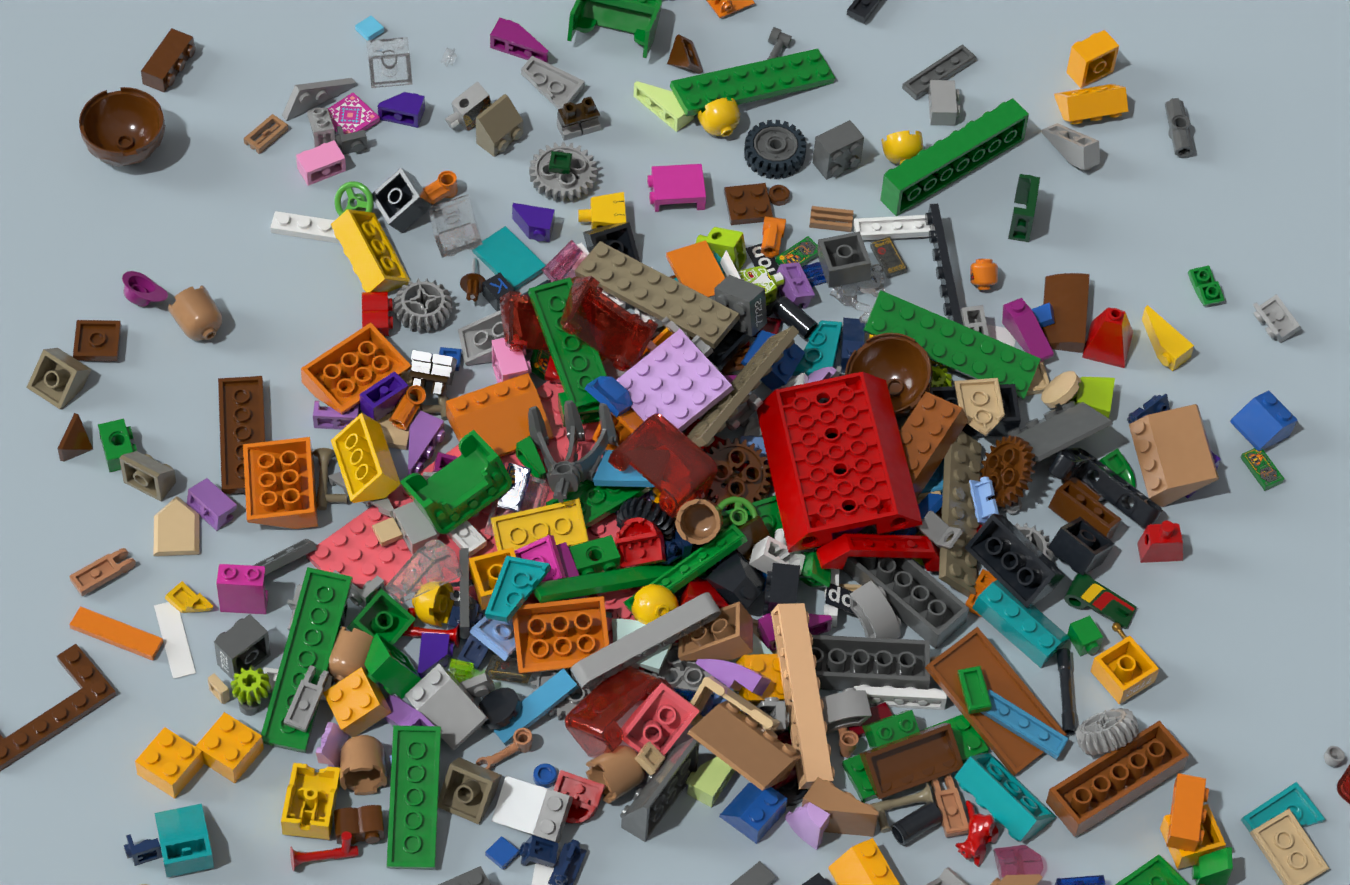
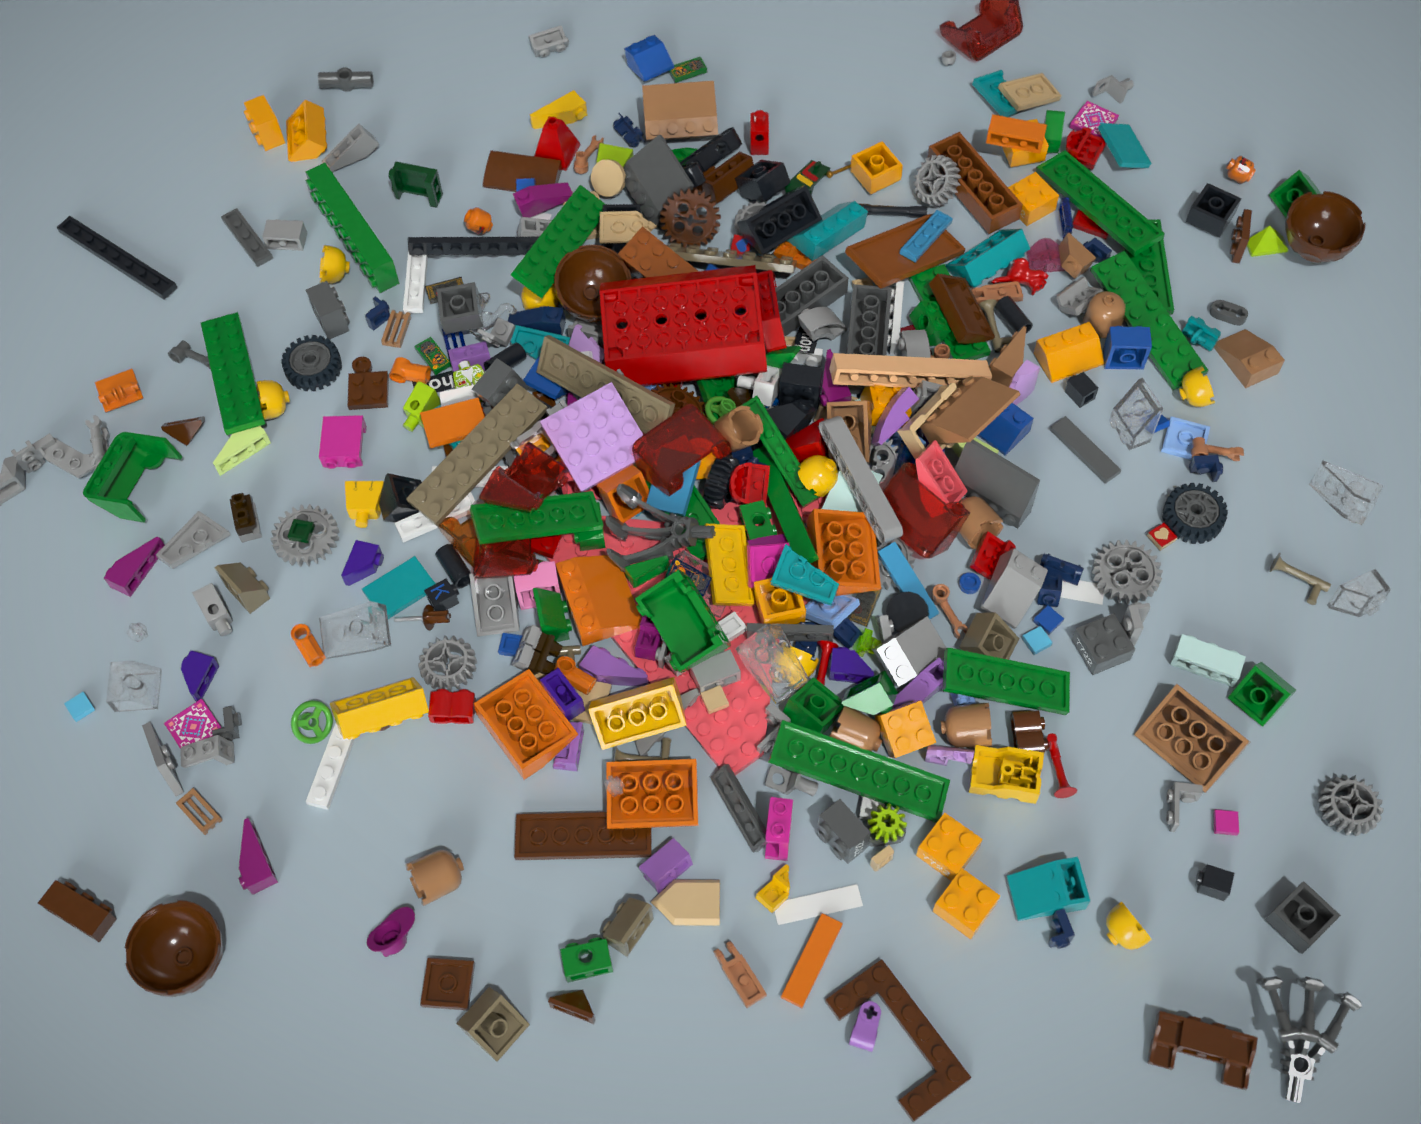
camera: 80 degrees left, 5 degrees up
(47, 676) = (865, 1030): none -> medium lavender piece
(214, 180) = (253, 862): none -> magenta slope
(281, 442) = (614, 785): none -> clear plate
(306, 700) = (907, 770): light grey hinge -> none
(321, 162) = (251, 755): bright pink brick -> none
(401, 200) = (321, 674): black brick -> none
(475, 374) = (551, 614): none -> green slope
(475, 840) = (1037, 640): none -> medium azure tile
(563, 262) = (422, 536): clear pink wing -> none
(610, 392) = (597, 488): blue slope -> none
(649, 758) = (969, 489): tan tile -> none
(823, 307) = (500, 334): none -> light grey bracket
(844, 198) = (378, 314): none -> dark blue bracket
(938, 530) = (751, 260): light grey bracket -> none
(974, 690) = (903, 256): green tile -> none
(981, 492) = (721, 239): light blue hinge -> none
(1085, 636) = (841, 191): green brick -> none
(1091, 365) = (581, 162): none -> nougat brick
(1103, 845) = (1036, 197): none -> light orange brick
(1205, 285) = (513, 82): green slope -> none

